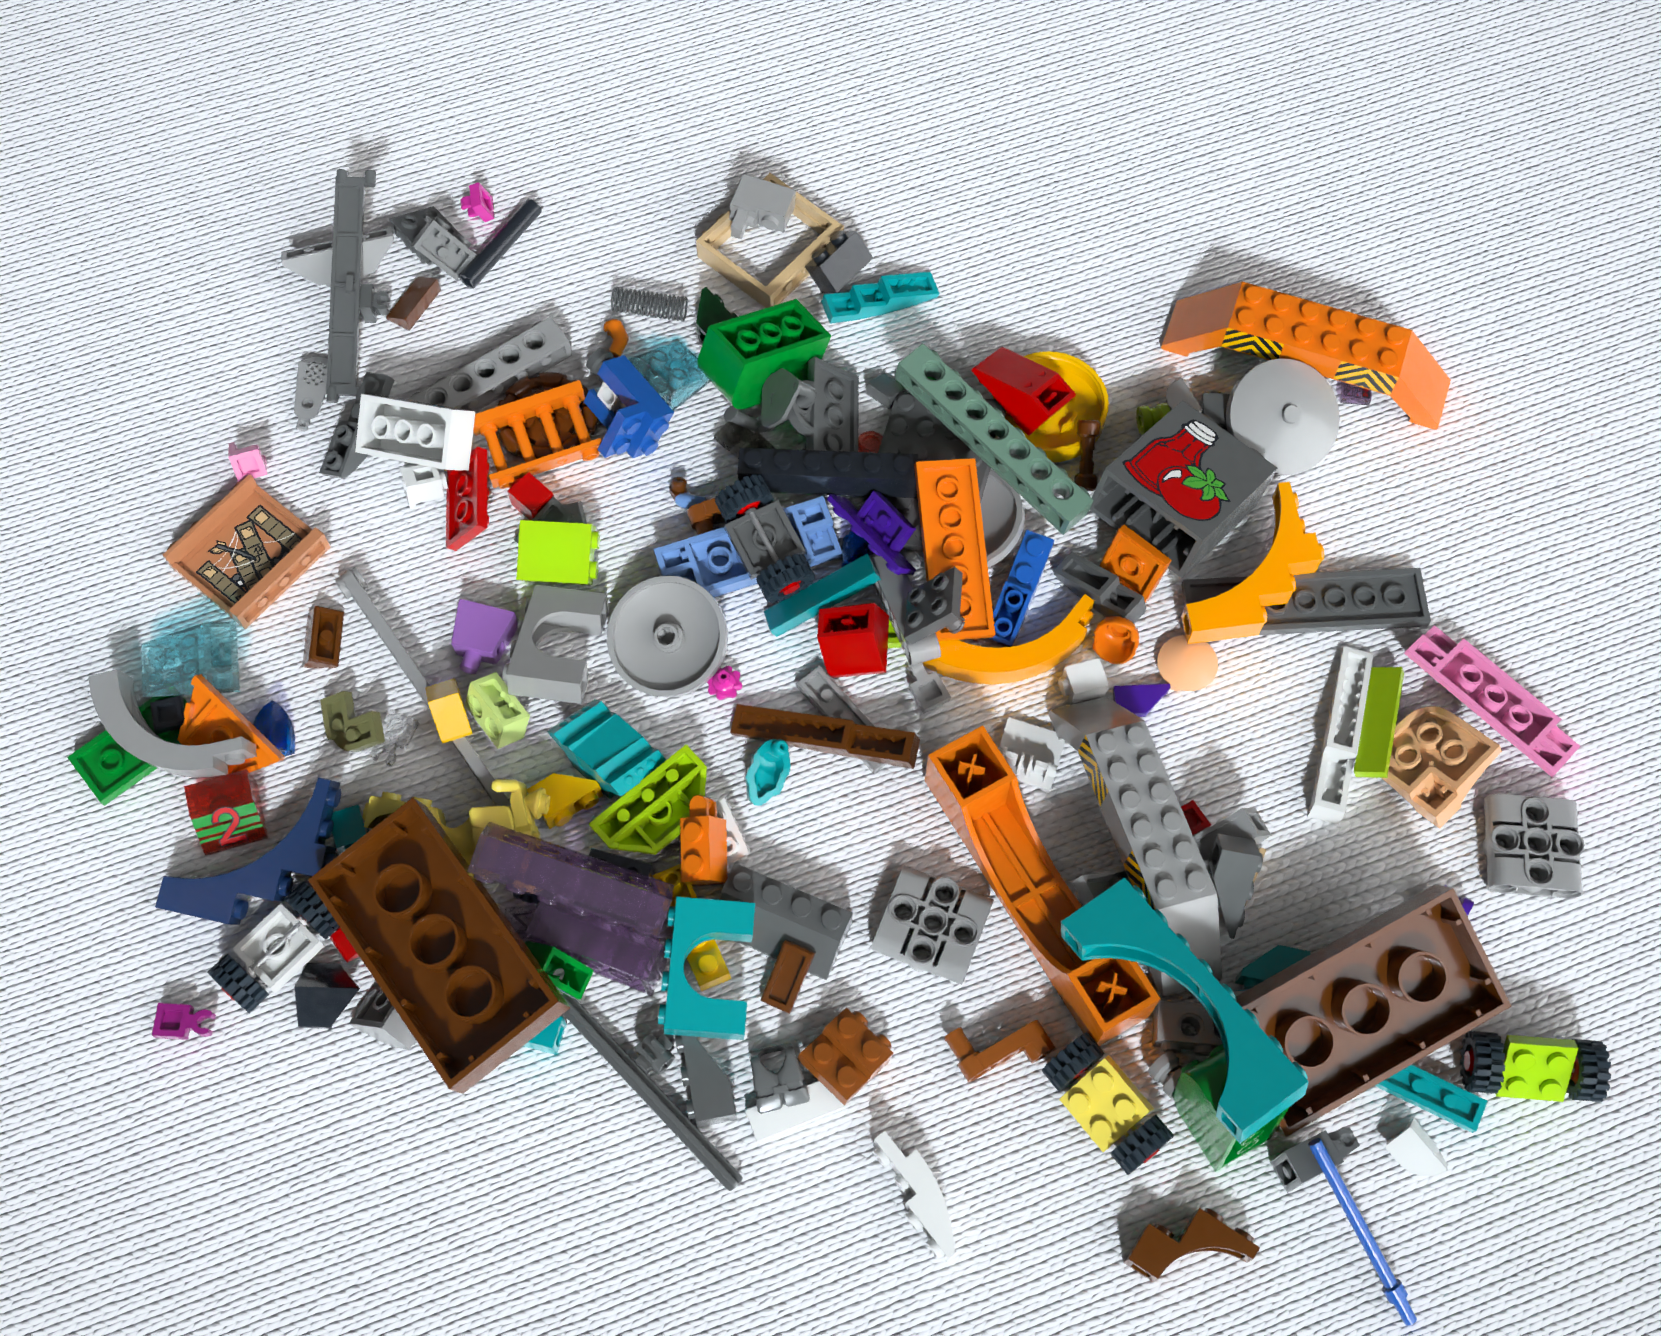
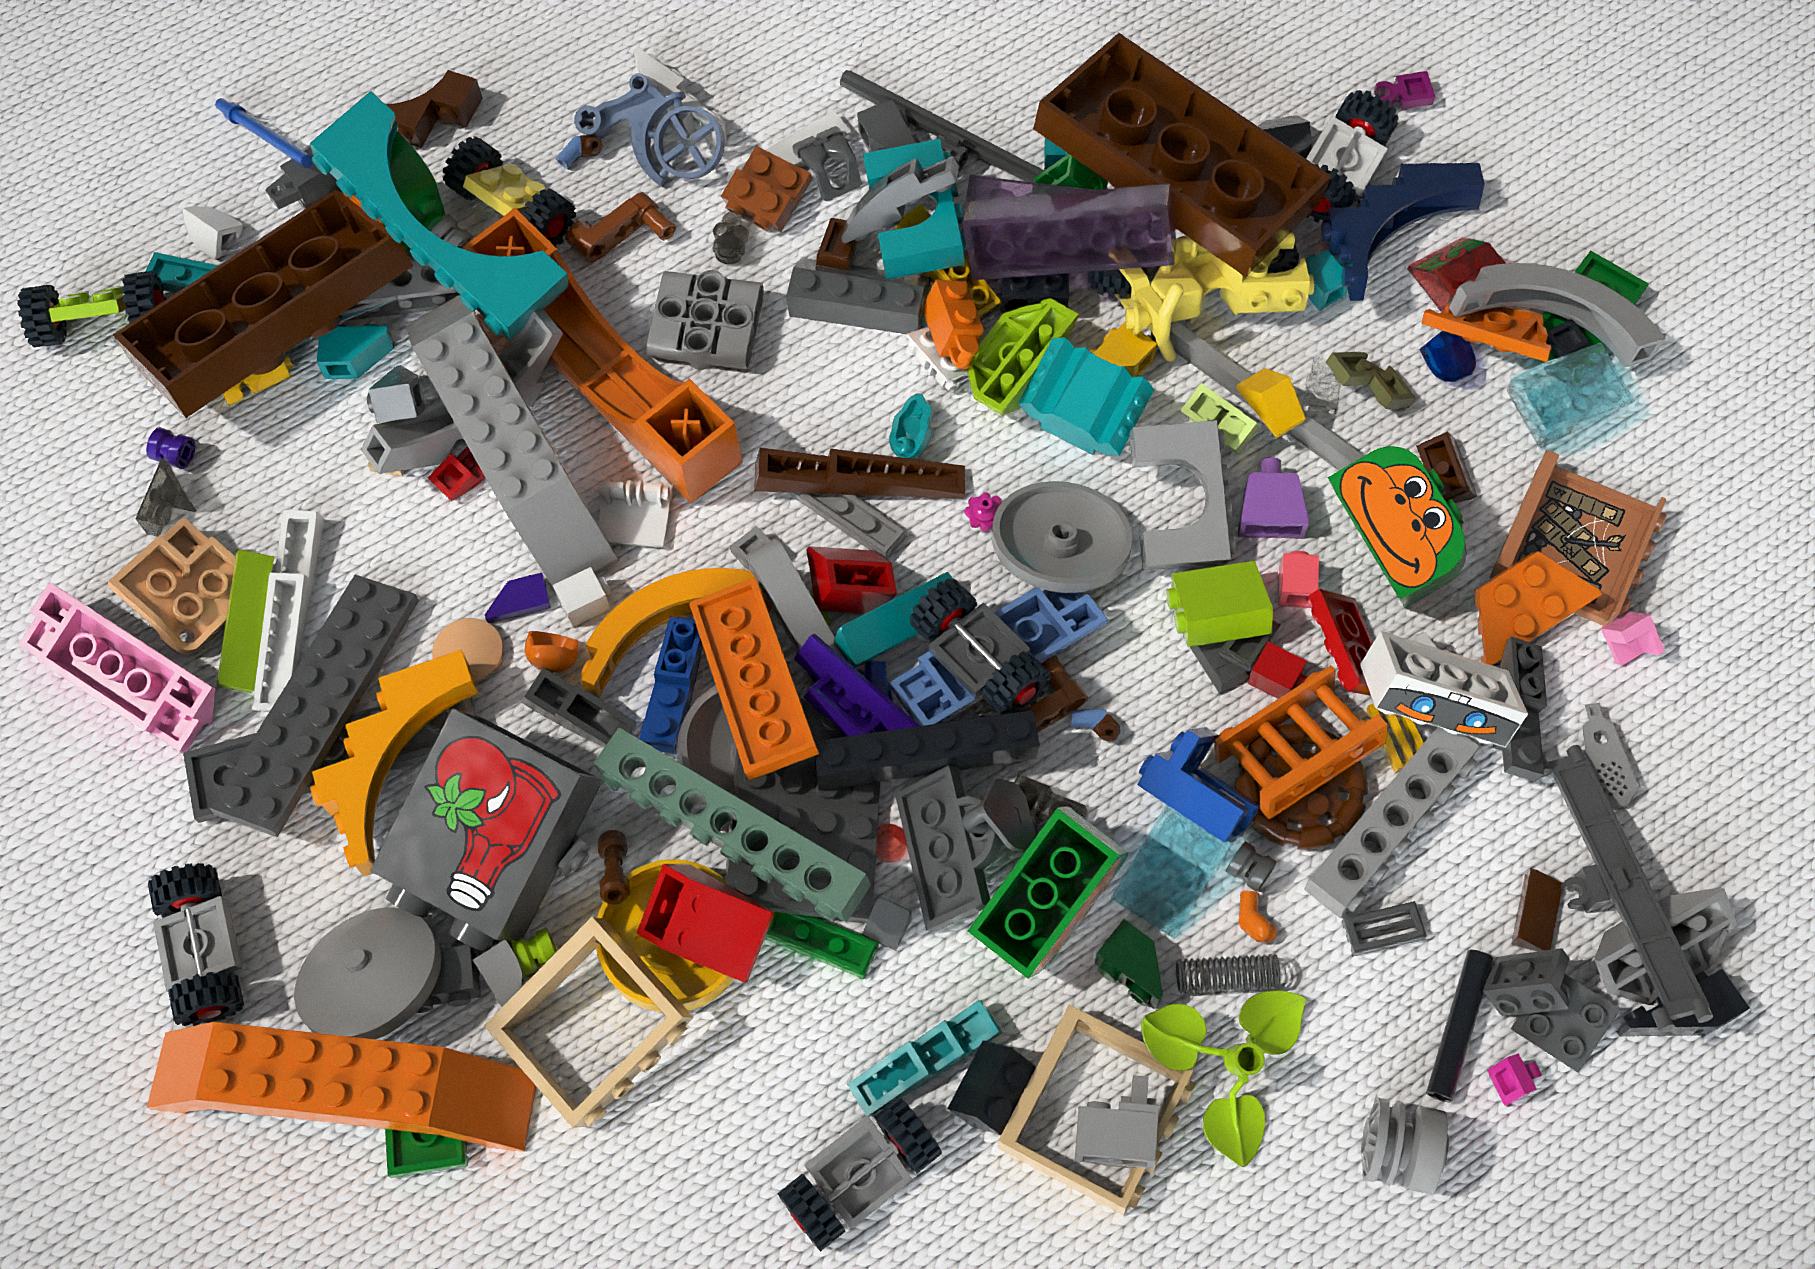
camera: 170 degrees right, 0 degrees up
(314, 503) = (1527, 602): none -> orange wing
(320, 217) = (1724, 1004): none -> black slope
(386, 568) = (1403, 520): none -> brick
(485, 566) = (1297, 579): none -> coral brick
(525, 318) = (1354, 936): none -> dark grey tile
(571, 170) = (1412, 1146): none -> light grey wheel
(667, 220) = (1176, 1035): none -> lime plant
(721, 973) = (887, 198): none -> slope
(892, 1009) = (729, 239): none -> clear smoke piece
(934, 606) = (759, 581): dark grey plate -> none
(935, 235) = (859, 1172): none -> plate
(954, 1170) = (642, 109): none -> sand blue piece
(1027, 1163) = (579, 147): none -> arm
(1088, 378) = (547, 979): none -> tan window
(1135, 562) = (539, 733): orange tile -> none
(1316, 636) = (314, 706): none -> dark grey plate
(1415, 468) = (196, 944): none -> plate
(1452, 860) = (163, 494): none -> clear smoke slope
(1554, 825) = (57, 508): light grey connector -> none

